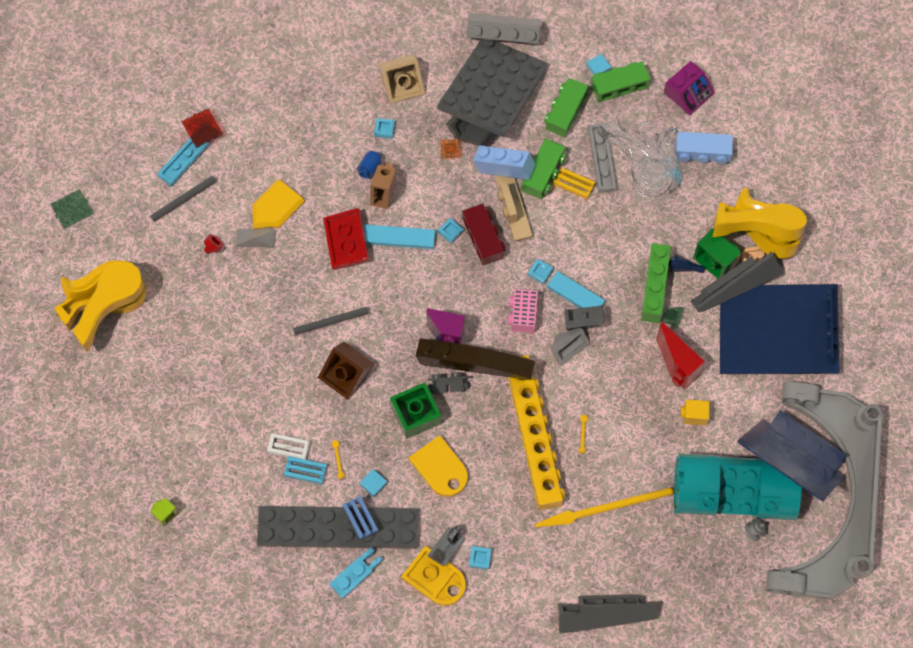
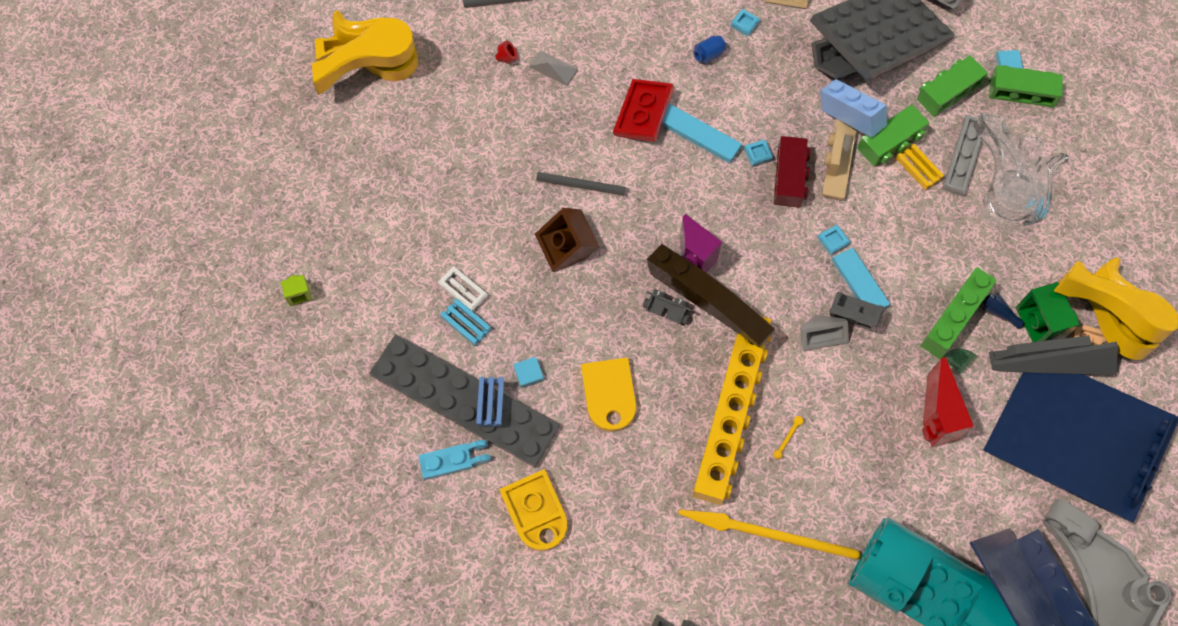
camera: 30 degrees right, 0 degrees up
(275, 206) = (591, 46): yellow tile -> none
(335, 444) = (513, 311): yellow hinge -> none
(383, 179) = (713, 67): medium nougat torso -> none
(415, 410) = (615, 317): green brick -> none
(447, 545) = (567, 482): dark grey hinge -> none
(449, 148) = (802, 72): clear orange tile -> none
(480, 558) = (597, 515): medium azure tile -> none
(524, 311) = (792, 271): bright pink brick -> none
(689, 88) = (1101, 126): magenta slope -> none
(695, 412) = (932, 479): yellow brick -> none
(703, 147) = (1088, 195): light blue brick -> none

